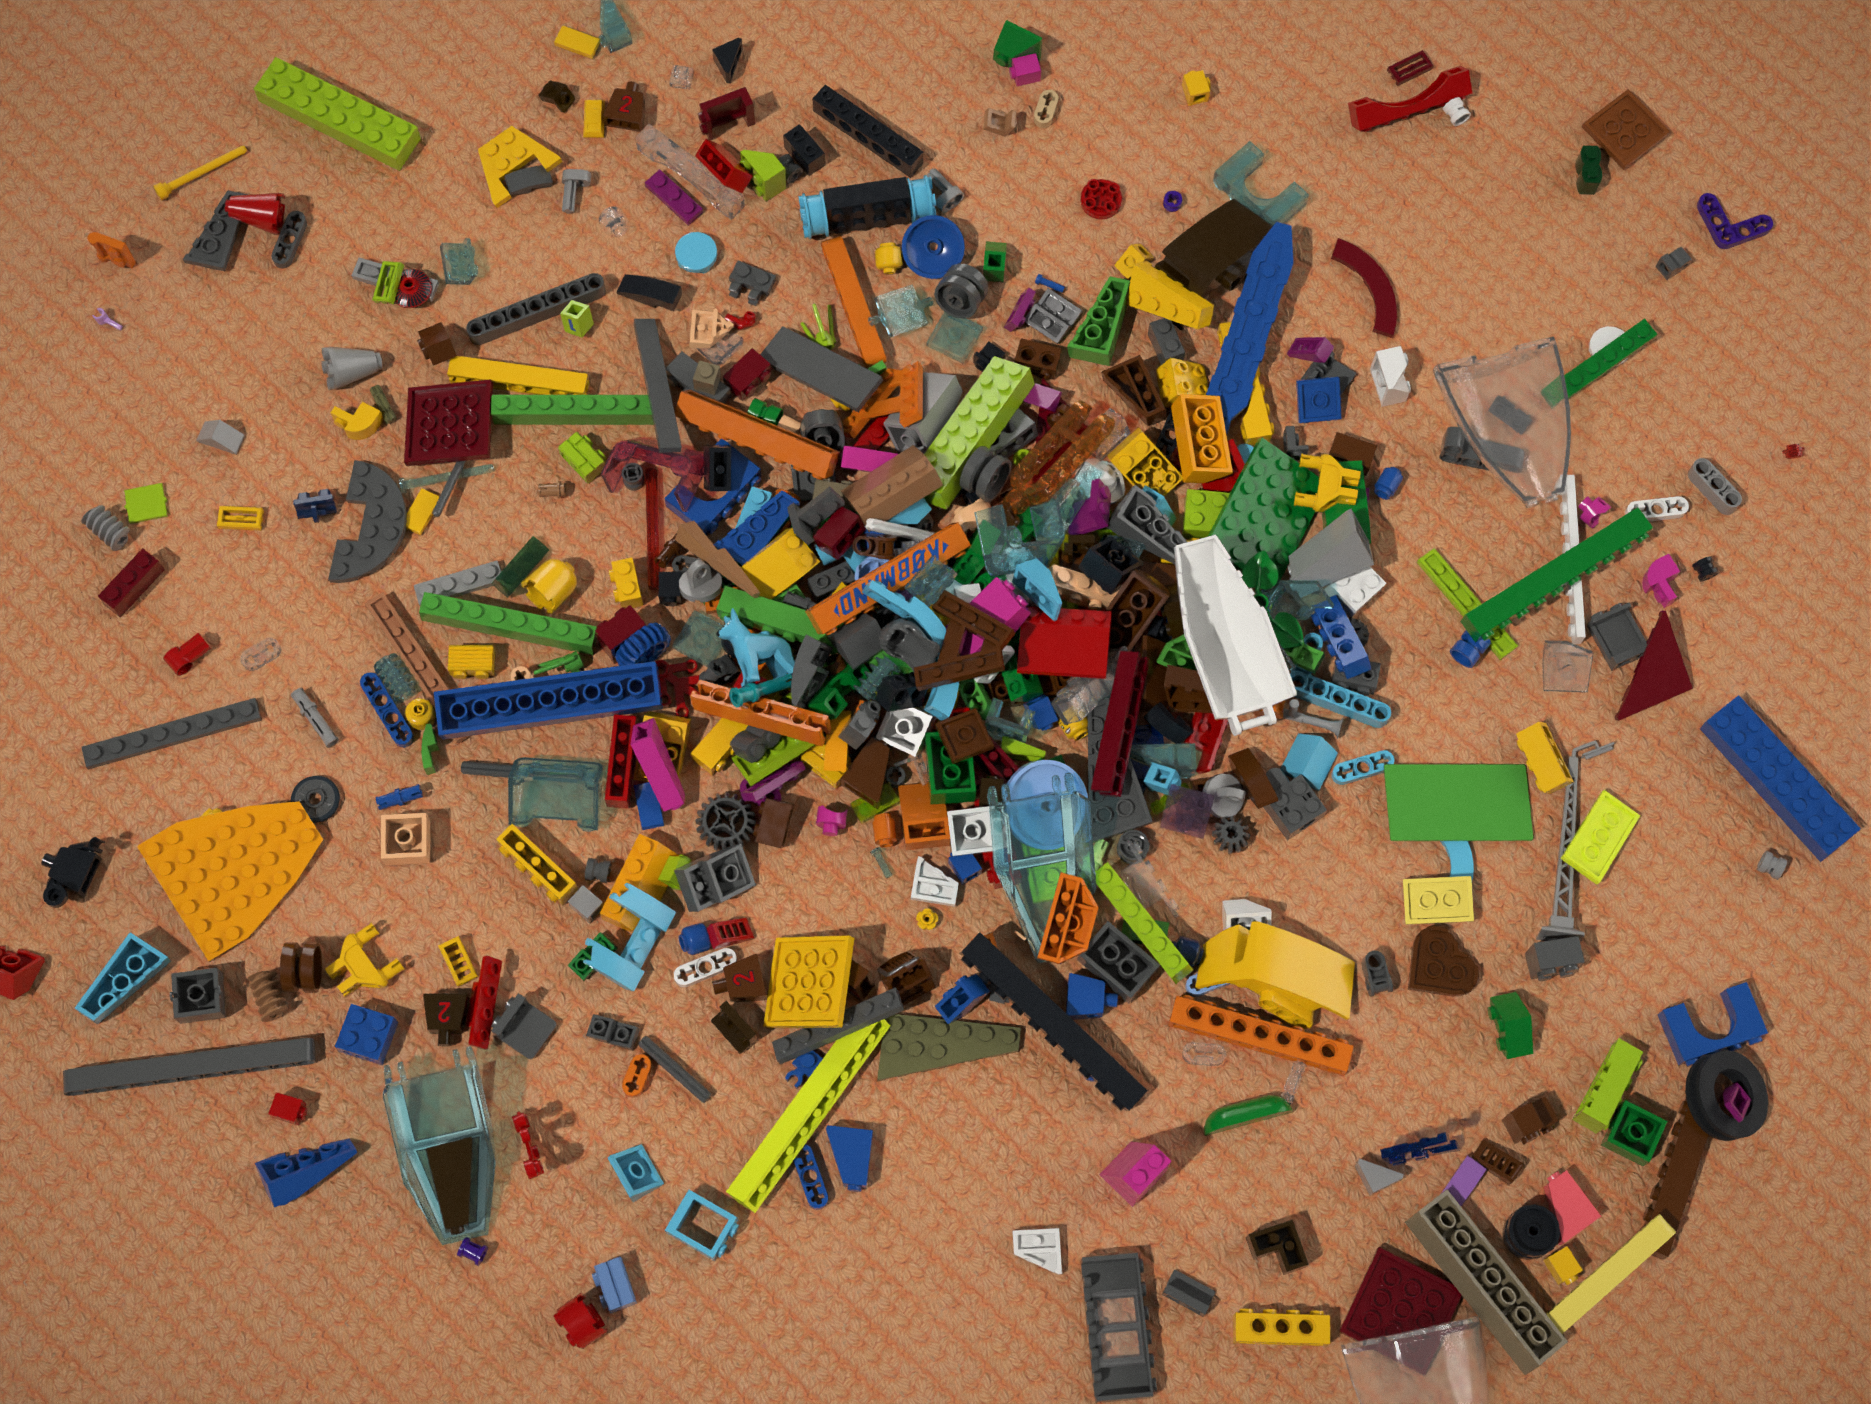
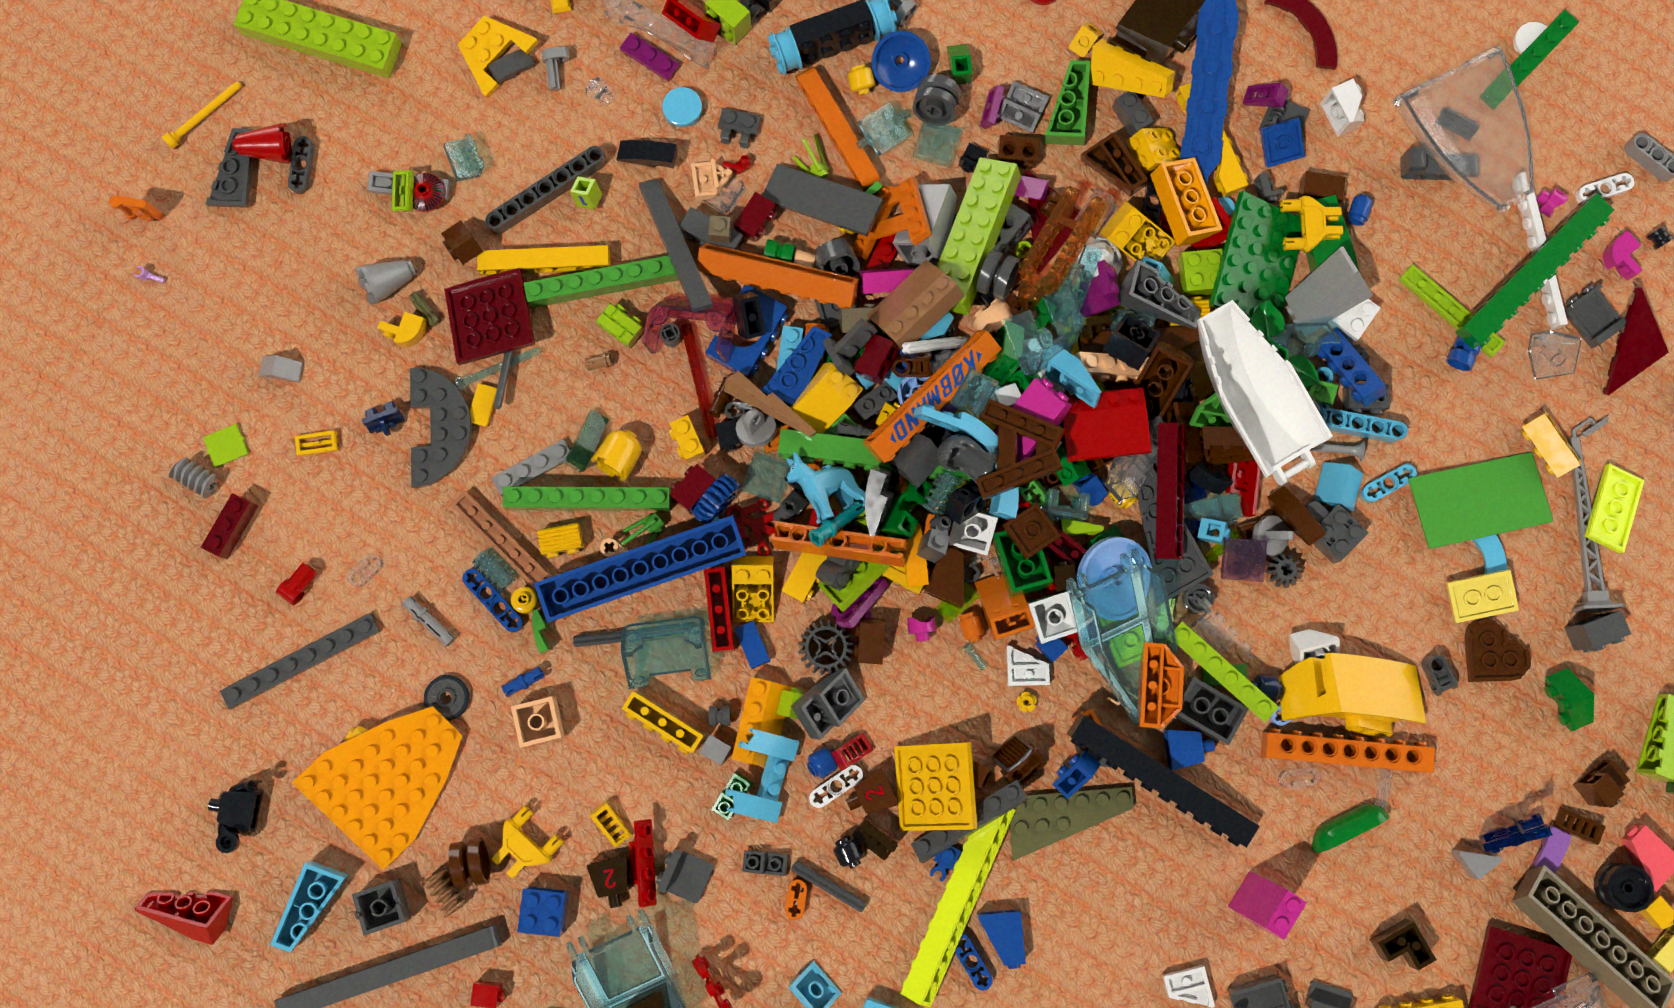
camera: 10 degrees left, 10 degrees up
(657, 764) = (753, 608): dark pink slope -> none
(703, 1035) = (848, 851): none -> black head
(1040, 280) = (1003, 74): blue piece -> none

